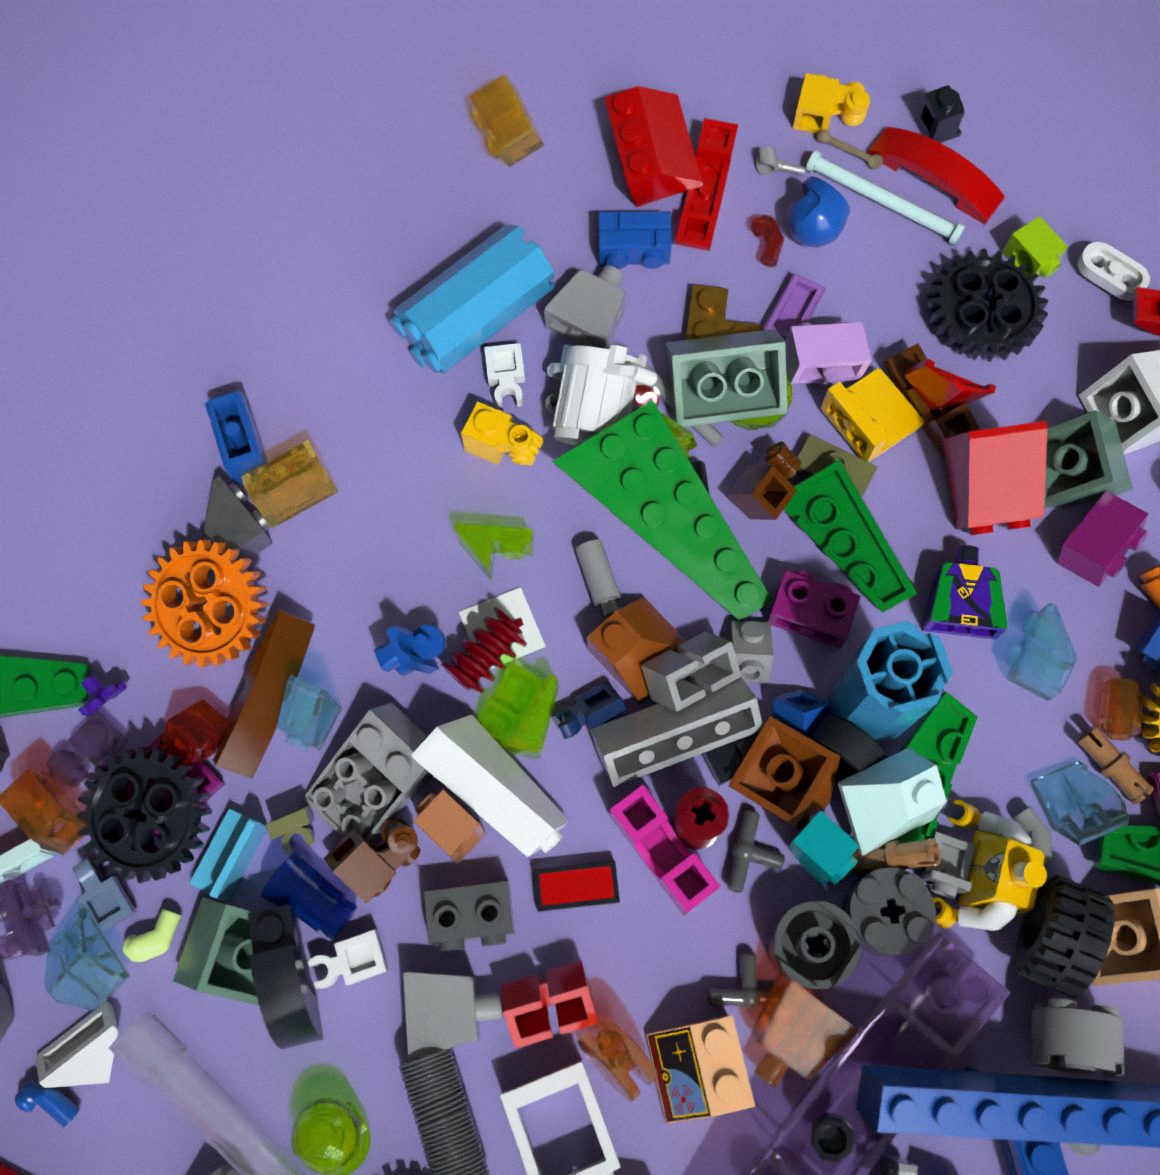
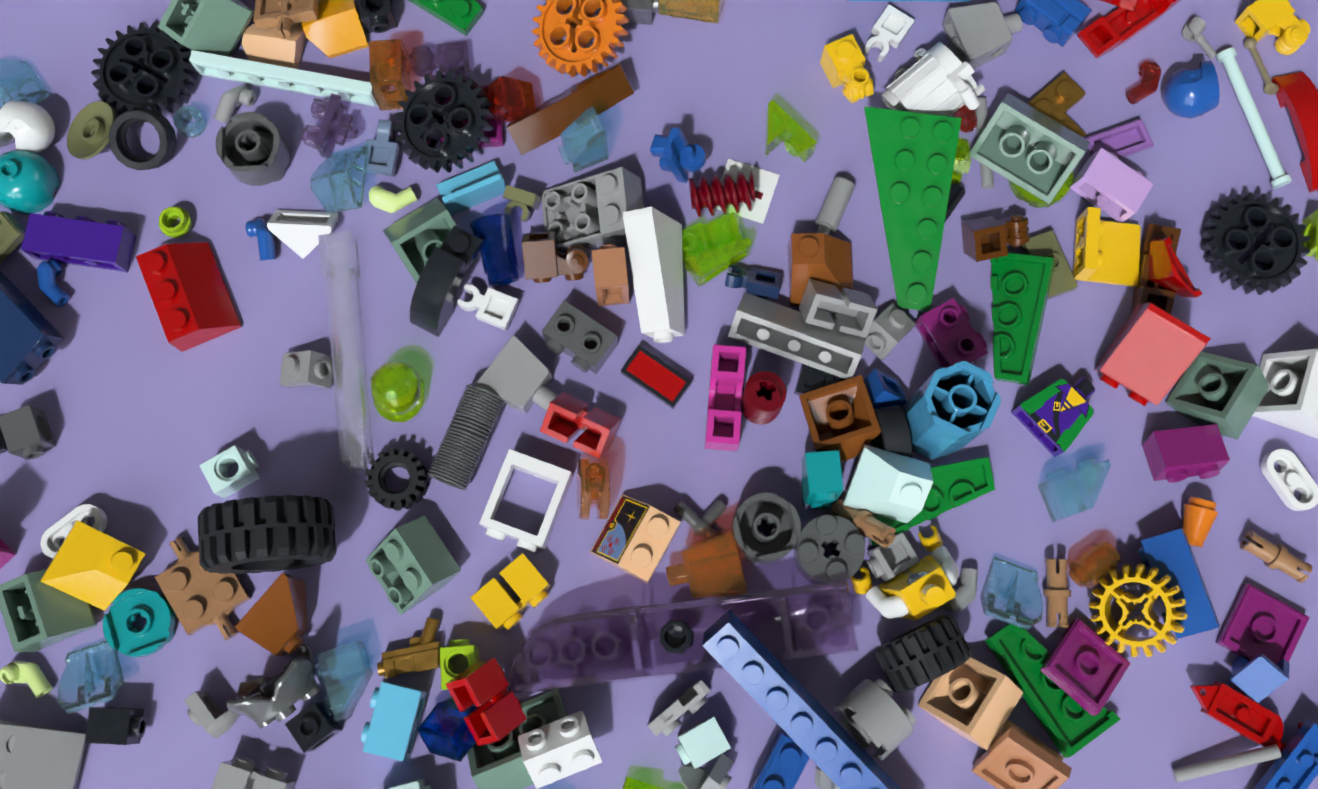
camera: 40 degrees right, 5 degrees up
(99, 694) = (475, 31): dark purple plant -> none
(746, 852) = (775, 444): dark grey piece -> none

